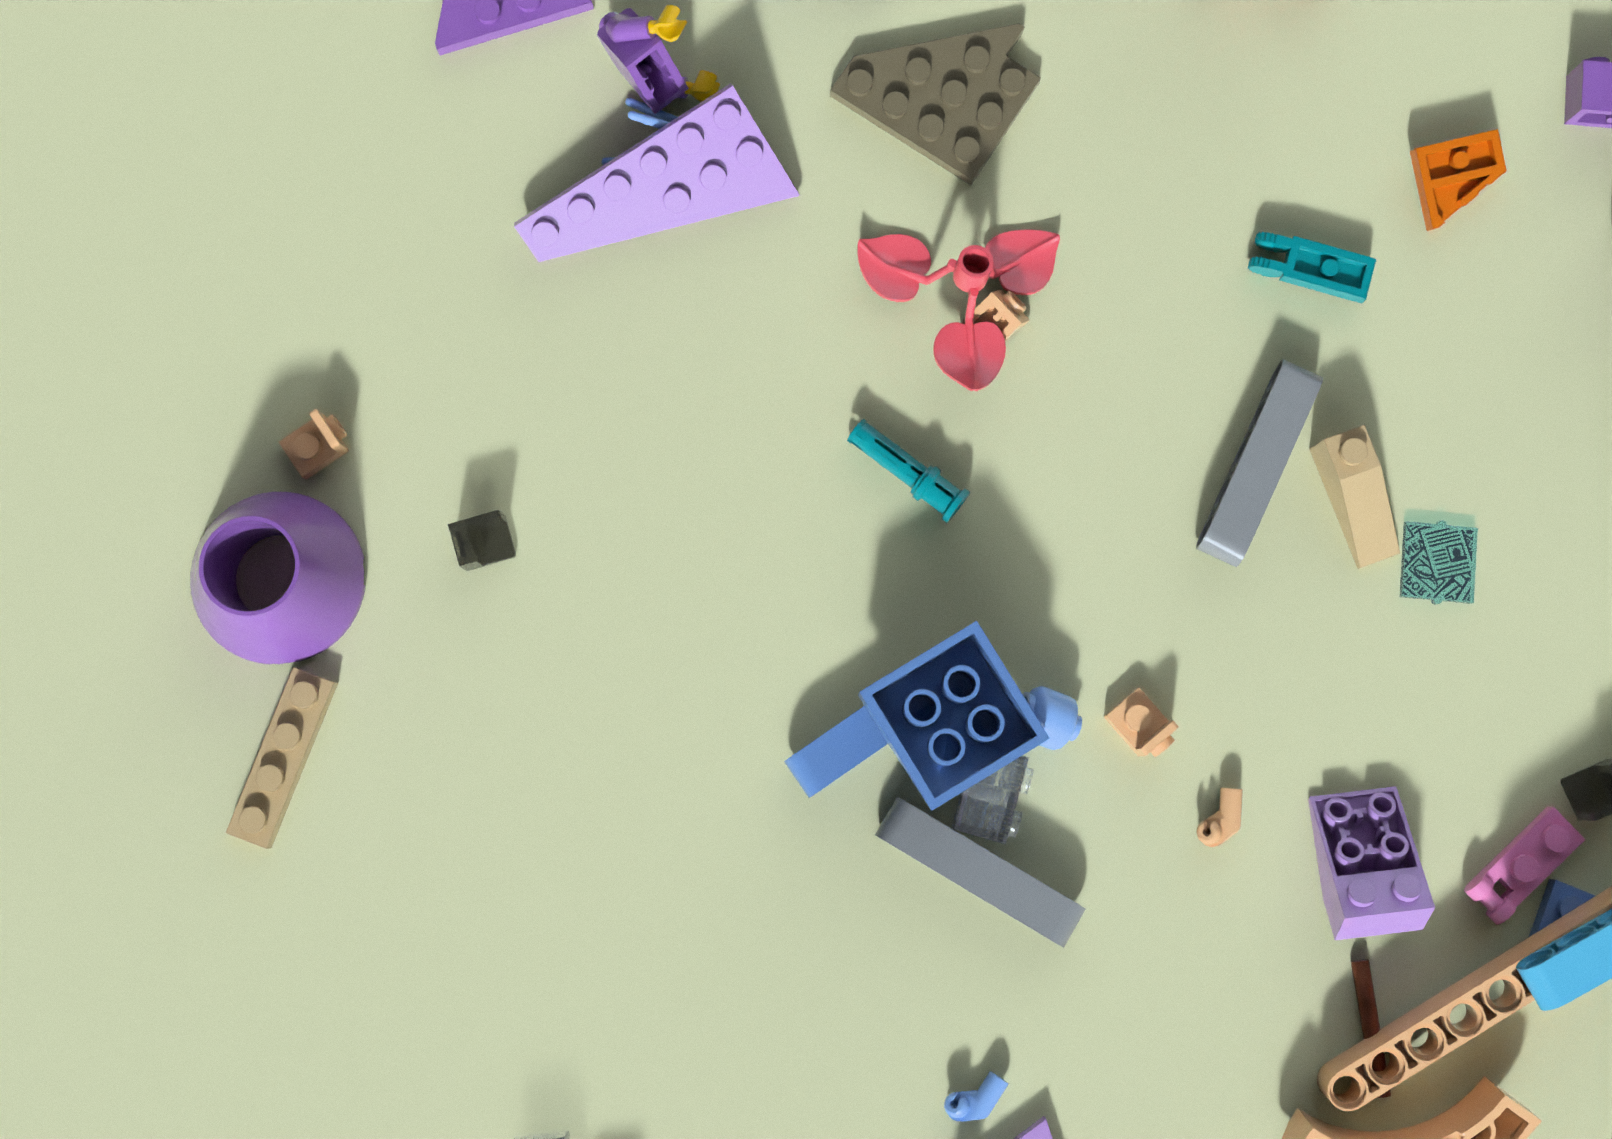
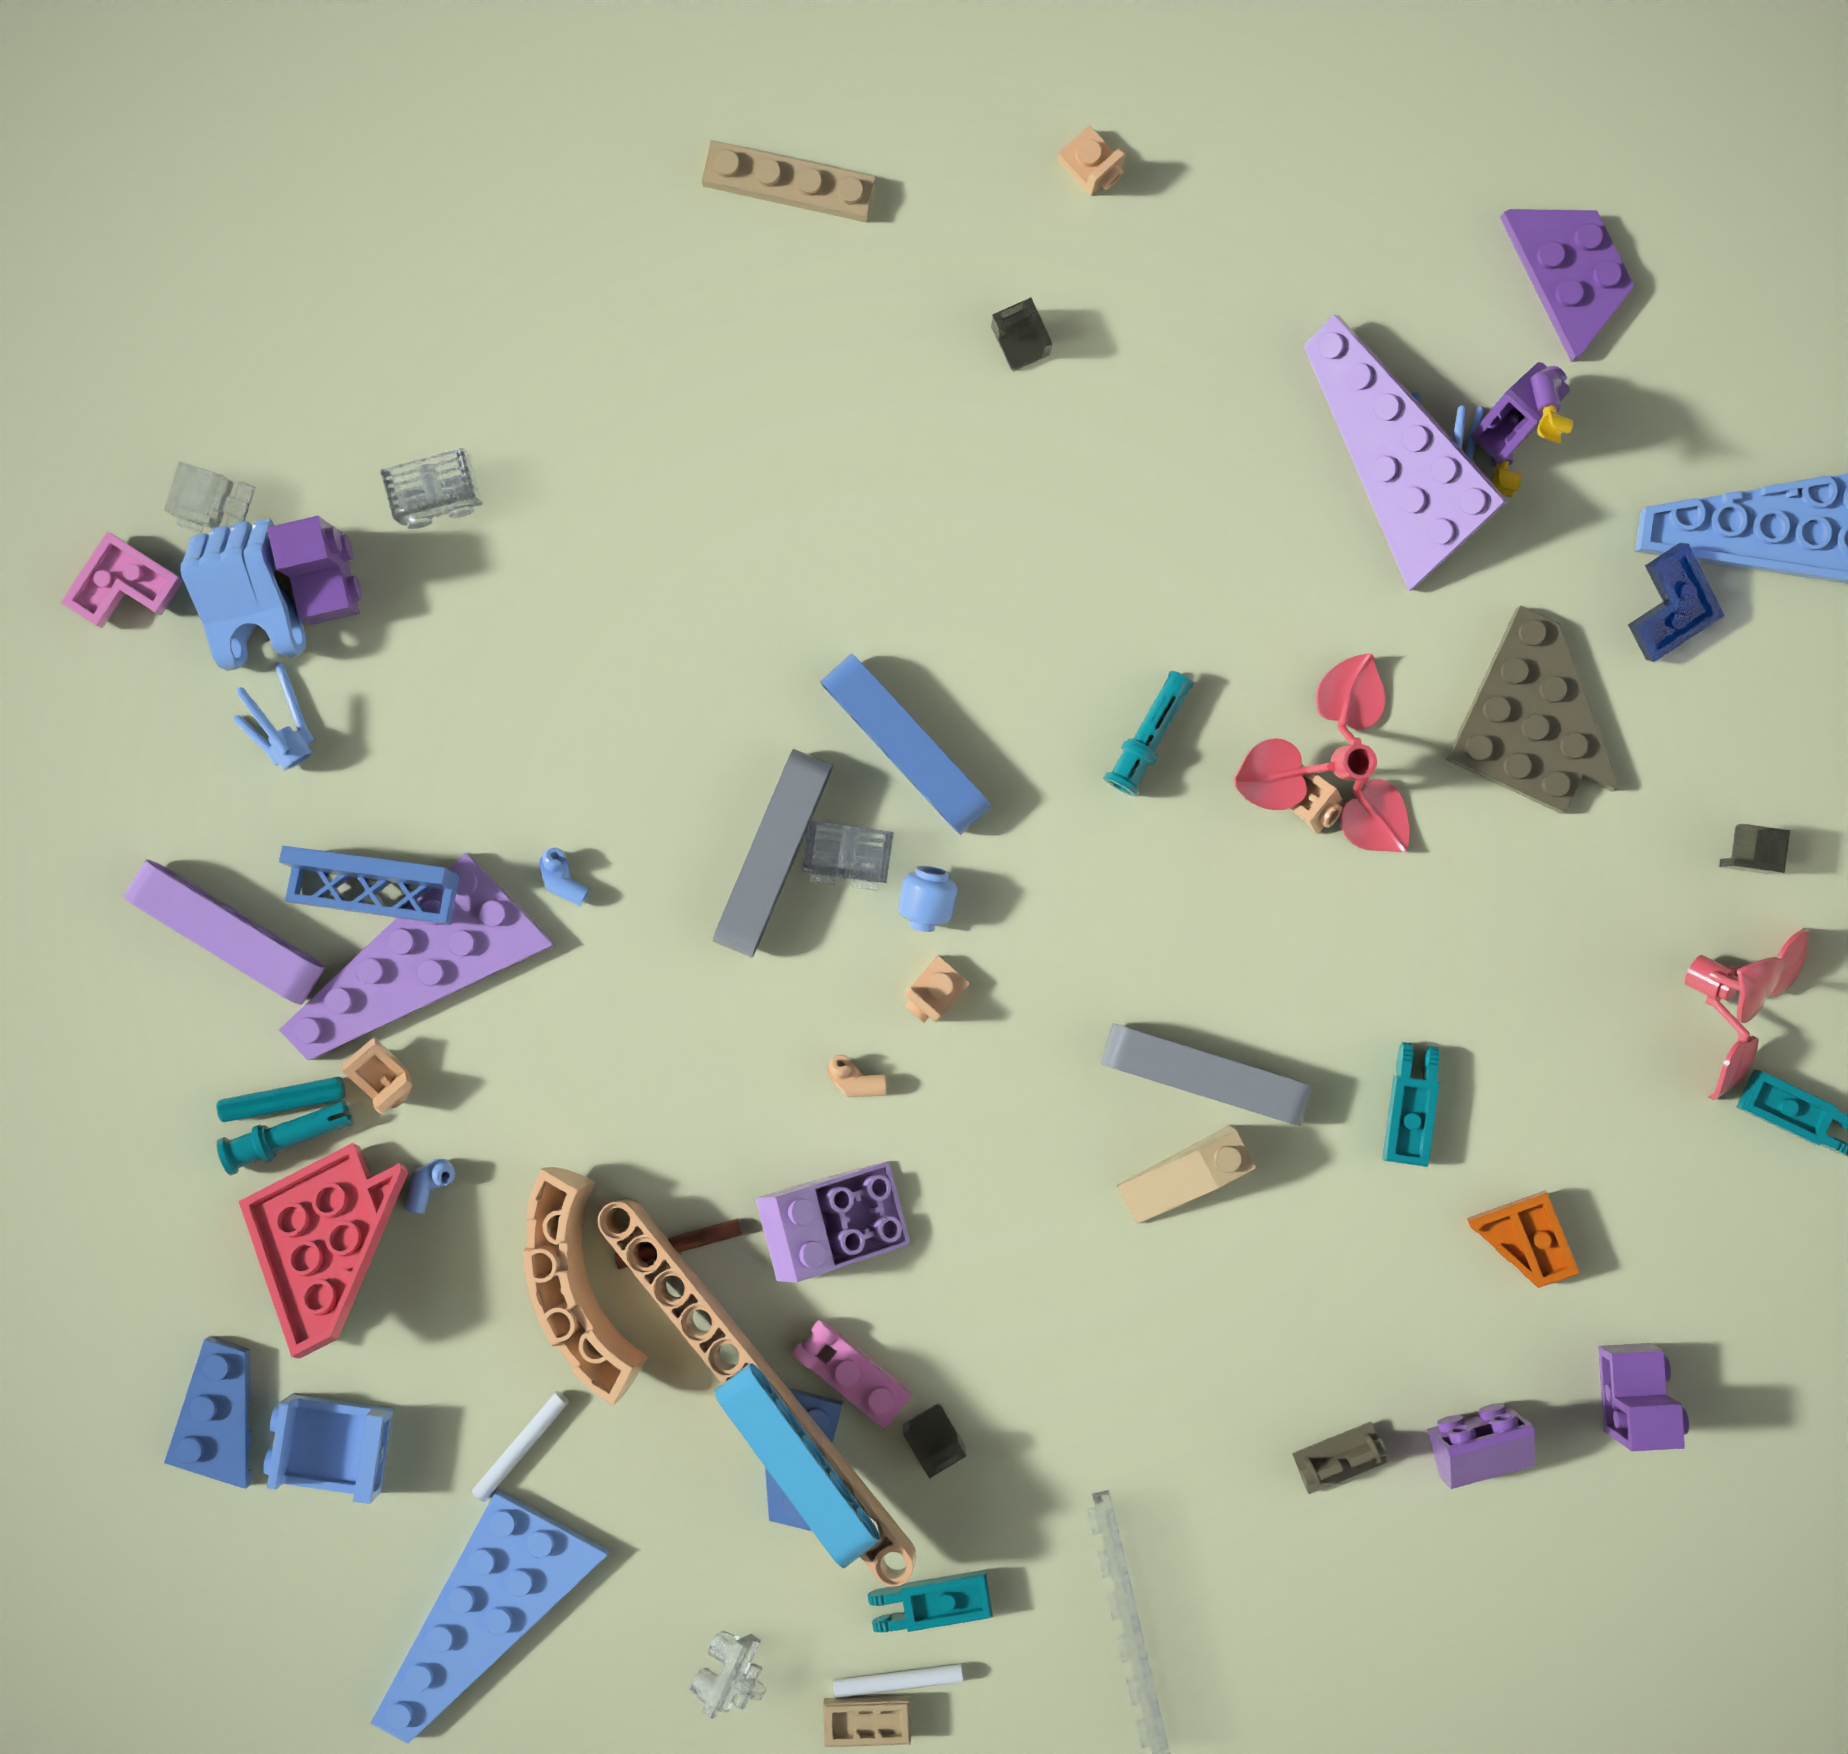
camera: 80 degrees right, 5 degrees up
(324, 586) = (955, 189): medium lavender cone -> none
(953, 715) = (913, 798): medium blue slope -> none
(1438, 562) = (1134, 1263): clear light blue piece -> none

